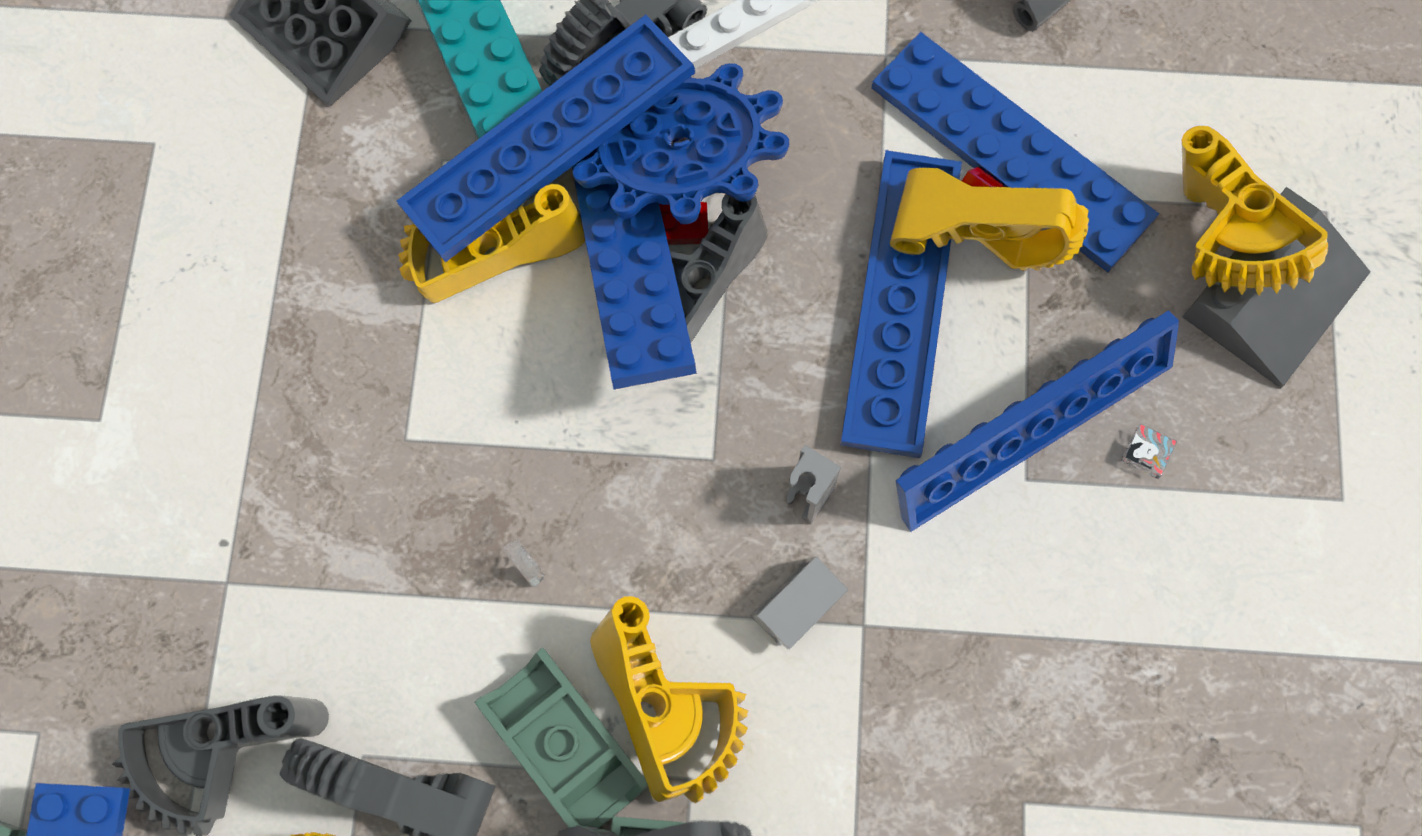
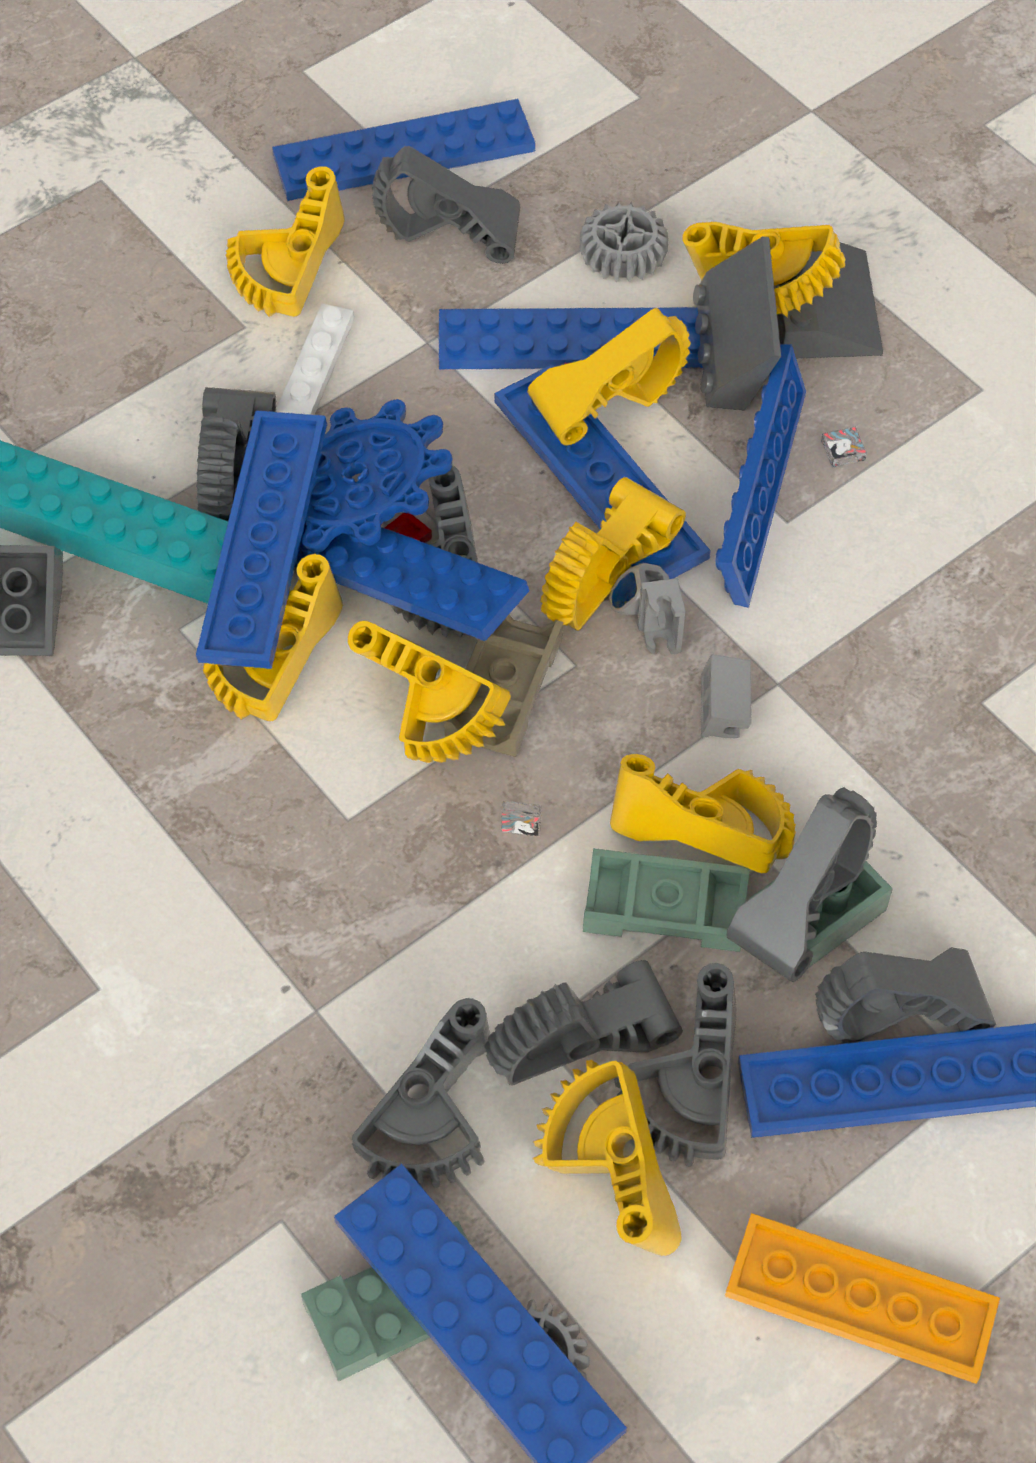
camera: 45 degrees left, 15 degrees down
(558, 391) = (430, 698): none -> yellow arm
(628, 429) = (517, 660): none -> dark tan piece
(796, 384) = (592, 562): none -> yellow arm
(823, 437) = (626, 591): none -> light grey rock
(1148, 104) = (623, 241): none -> light grey gear
(1149, 259) = (737, 327): none -> dark grey slope

